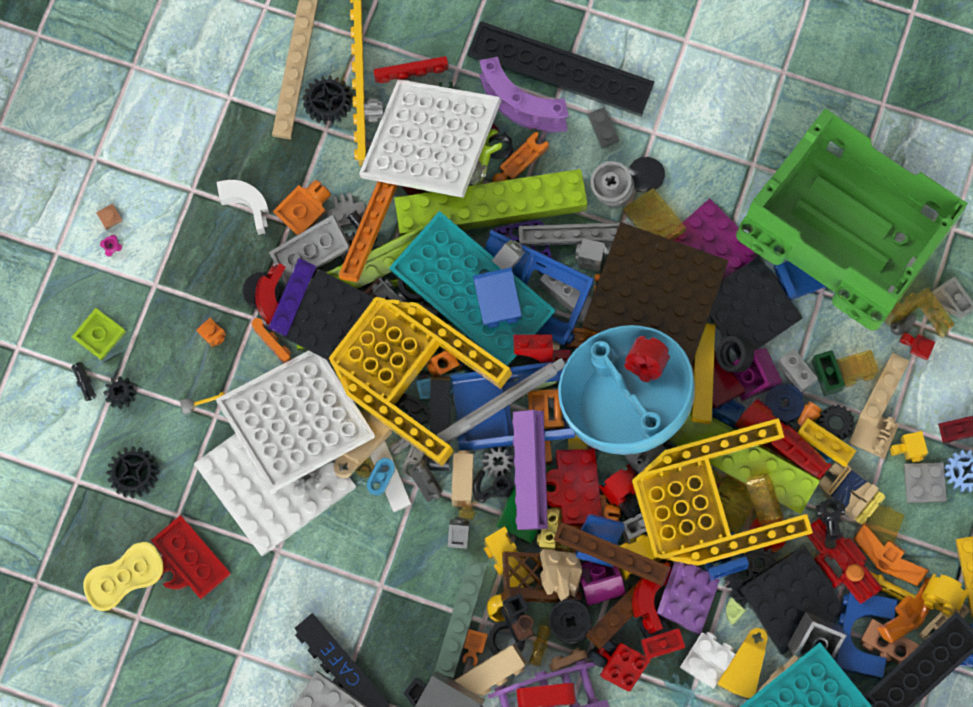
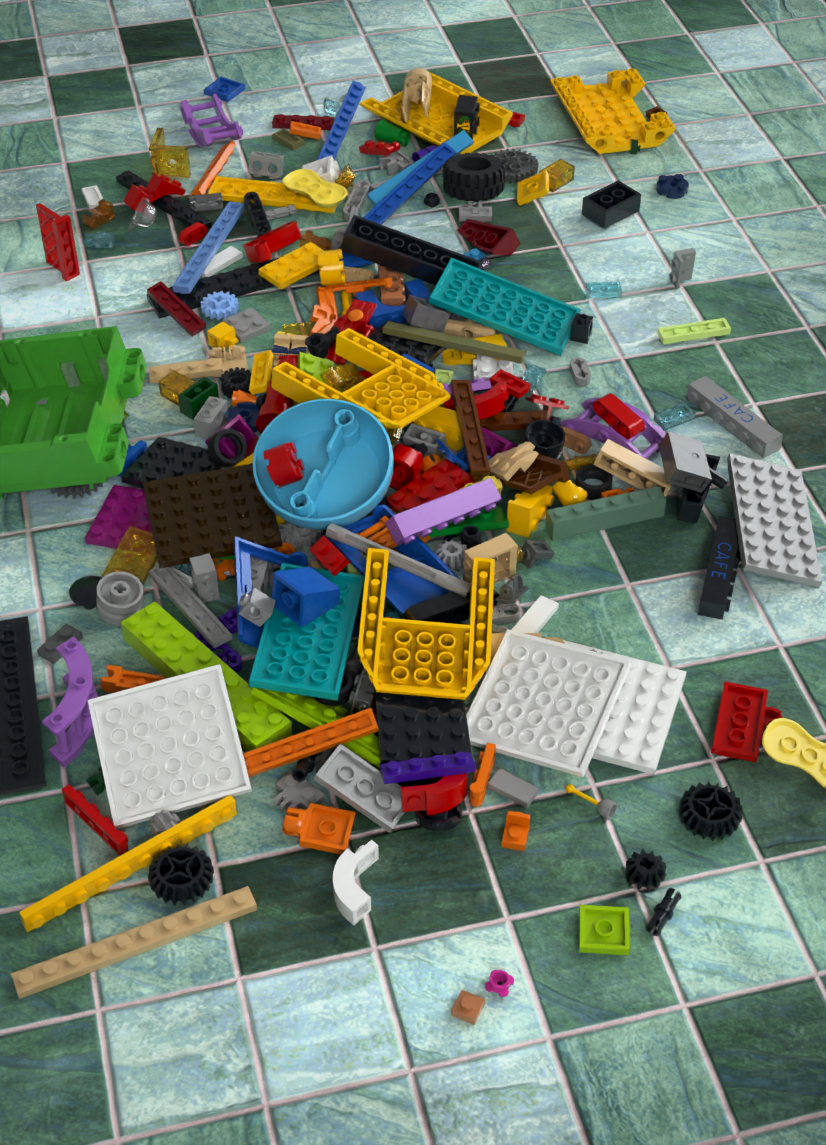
camera: 125 degrees left, 30 degrees down
(249, 357) = (513, 787): none -> light grey tile
(380, 477) = (537, 620): dark azure plate -> none
(515, 616) = (576, 454): black hips -> none
(758, 639) = (454, 342): none -> olive tile

